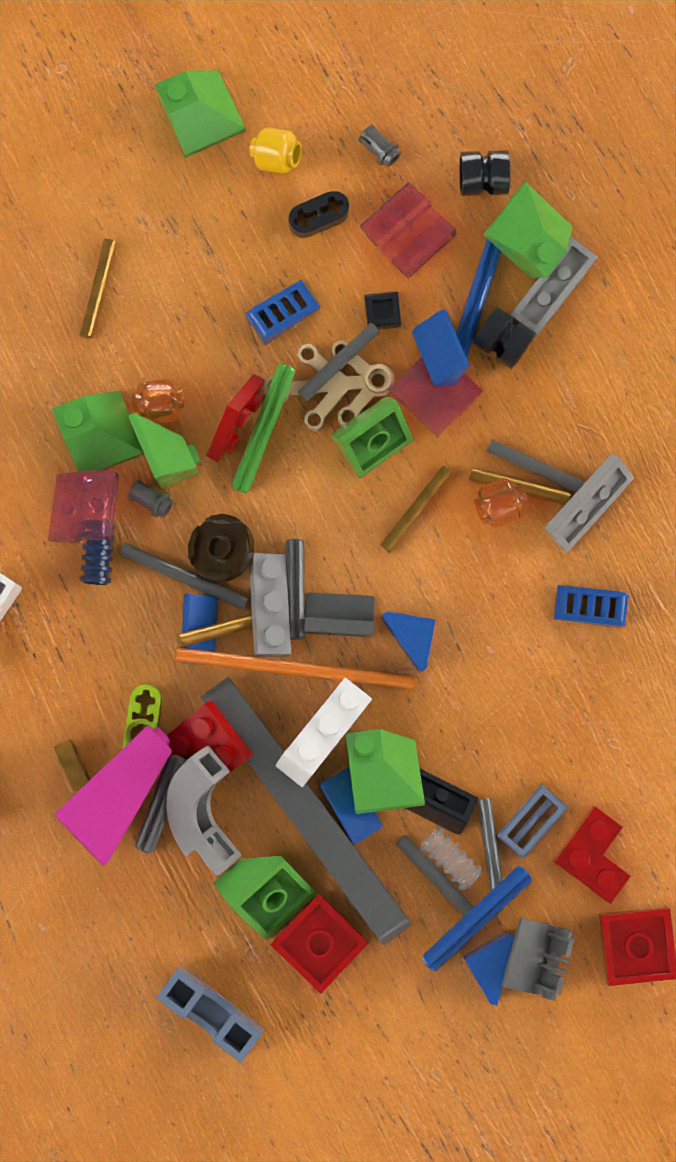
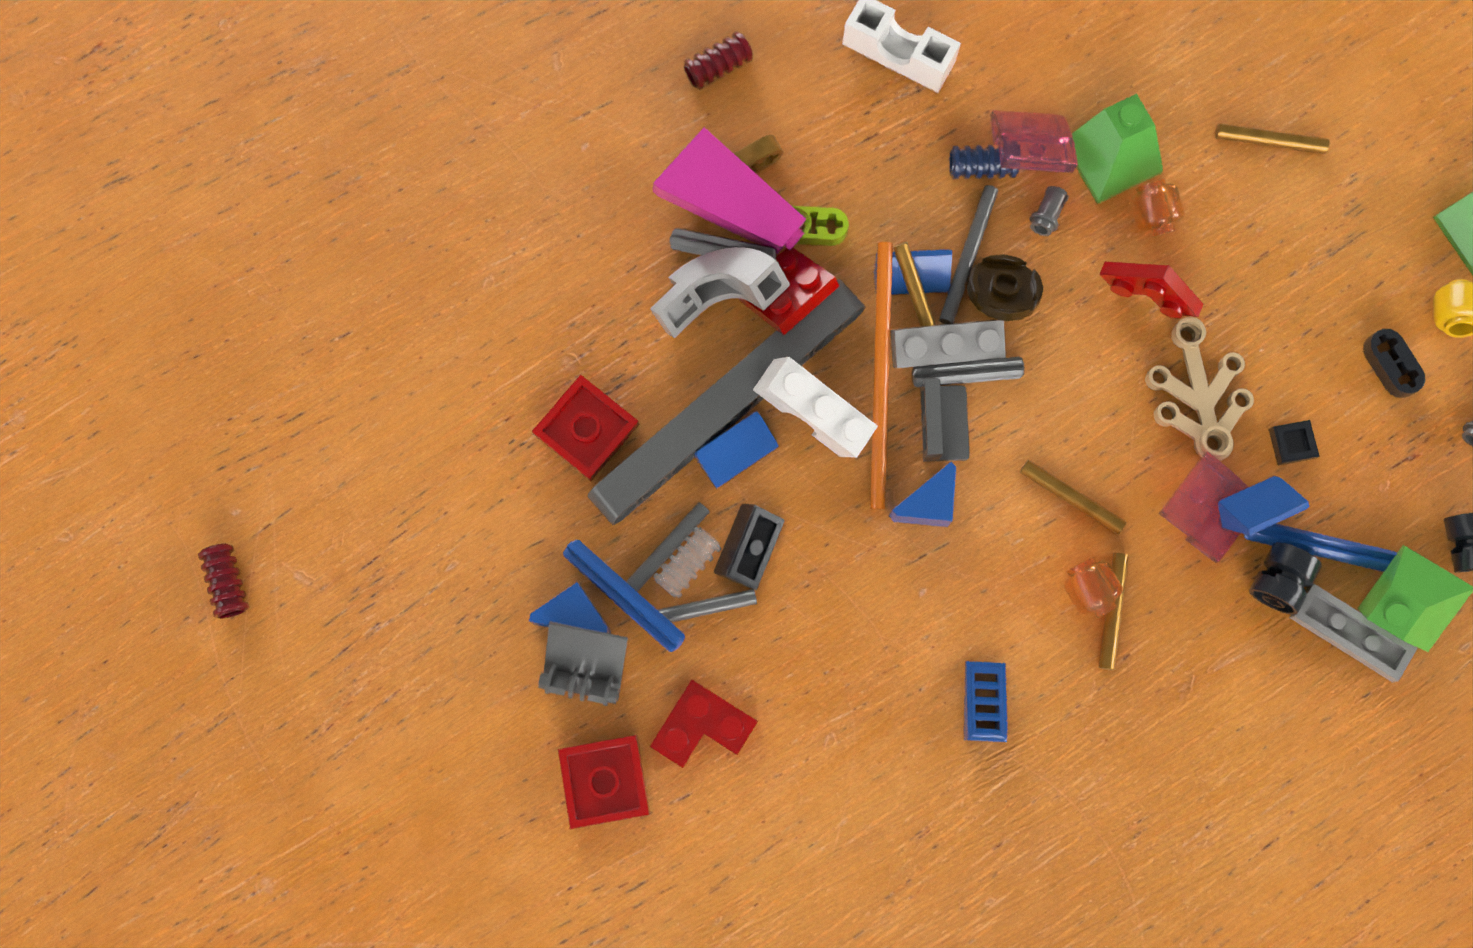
camera: 90 degrees right, 5 degrees down
(165, 451) = (1102, 215): bright green slope -> none
(223, 1020) = (520, 297): sand blue arch -> none
(263, 428) = (1145, 320): bright green axle -> none
(264, 892) = (635, 363): bright green slope -> none
(265, 307) = (1281, 316): blue slope -> none
(338, 361) = (1230, 396): dark grey bar -> none
(373, 436) = (1149, 441): bright green slope -> none
(383, 771) = (778, 478): bright green slope -> none
(408, 230) = (1392, 464): clear pink slope -> none
(512, 843) = (760, 671): sand blue tile -> none
(535, 466) = (1139, 627): dark grey bar -> none
(589, 503) = (1105, 691): light grey plate -> none

